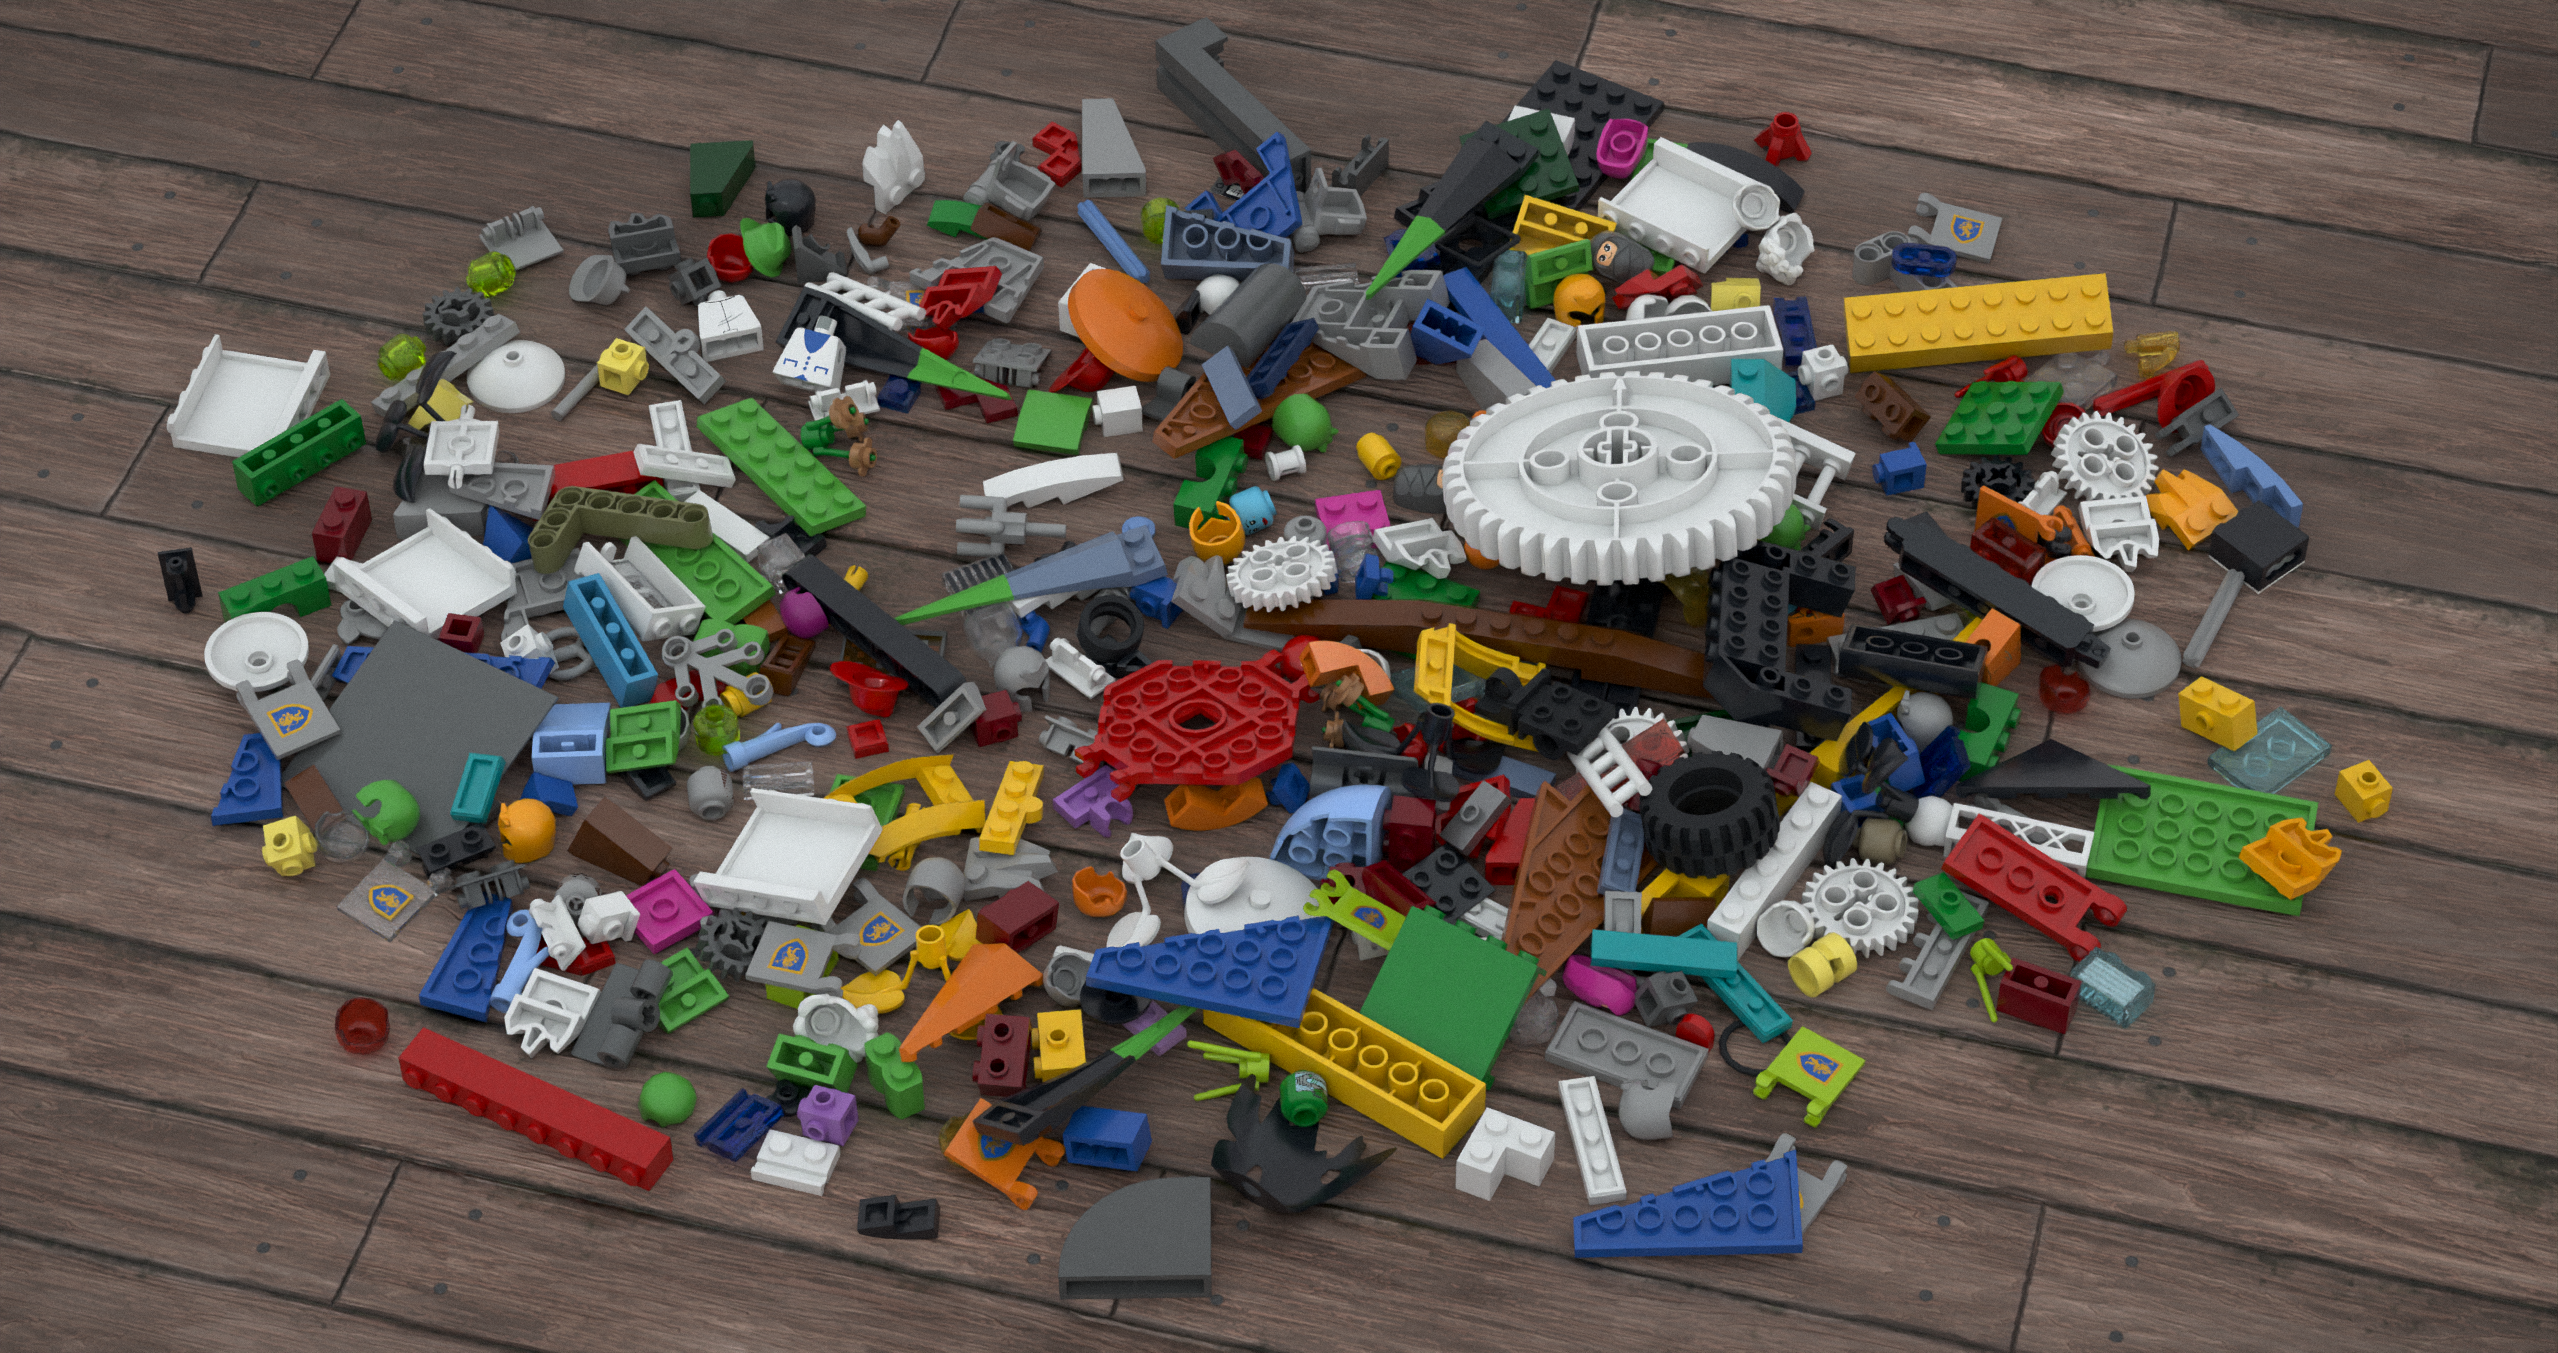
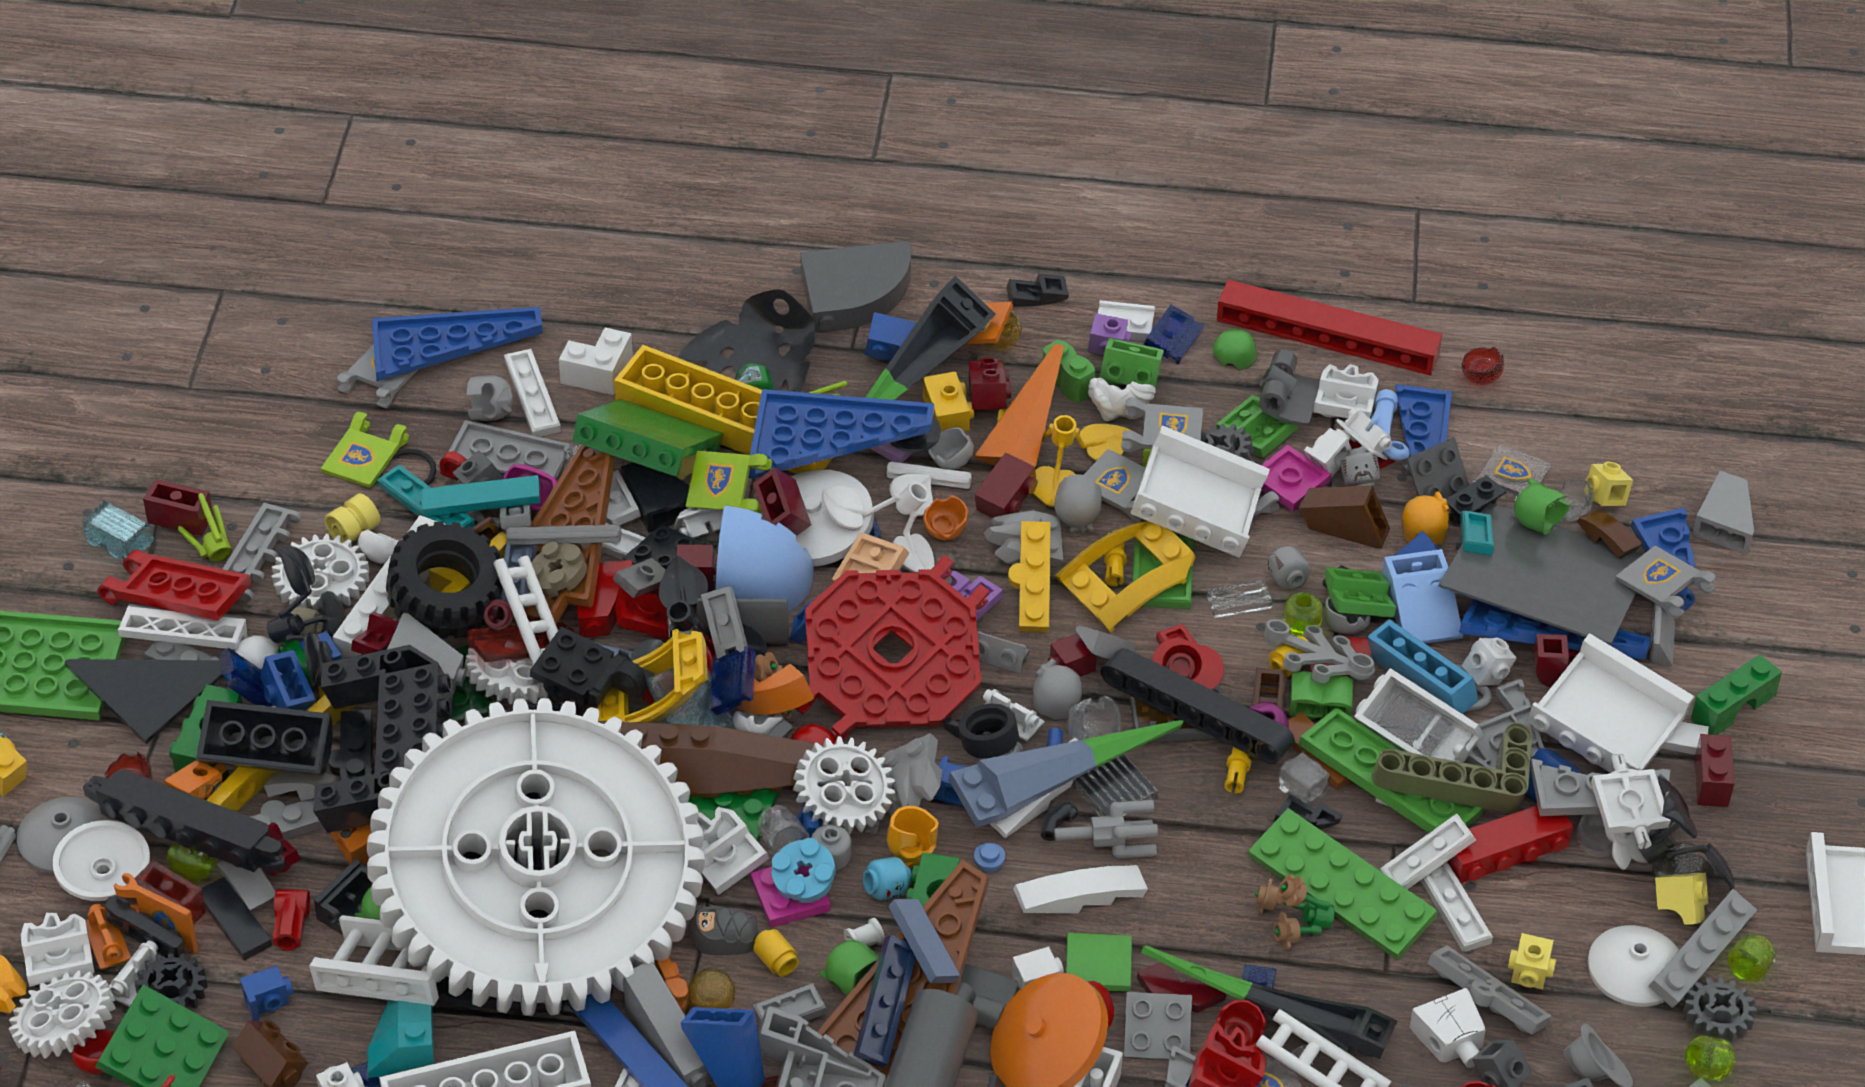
camera: 170 degrees right, 0 degrees up
(165, 809) = (1726, 514): none -> light grey slope
(180, 578) = (1825, 688): black hinge -> none
(255, 650) = (1721, 634): white dish -> none
(299, 452) = (1788, 831): green brick -> none
(576, 395) = (1564, 958): light grey bar -> none
(731, 528) = (1375, 822): white tile -> none
(774, 740) = (1252, 628): light blue plant -> none
(812, 358) = (1348, 982): white torso -> none
(861, 393) = (1307, 960): white hinge -> none
(1198, 837) = (872, 554): none -> light nougat wing
(1293, 874) = (782, 501): none -> dark red brick
(1338, 501) = (807, 853): none -> medium azure plate
(1371, 578) = (761, 796): blue tile -> none
(1372, 409) = (801, 1002): none -> light grey plate
(1386, 730) = (724, 620): none -> light grey plate
(1387, 673) = (732, 680): none -> clear blue plate
(1393, 888) = (697, 524): dark red slope -> none
(1565, 855) = (564, 534): none -> light grey axle
(1580, 811) = (555, 556): none -> dark tan plate
(1873, 549) = (290, 911): none -> red piece
(1948, 906) = (244, 560): green plate -> none

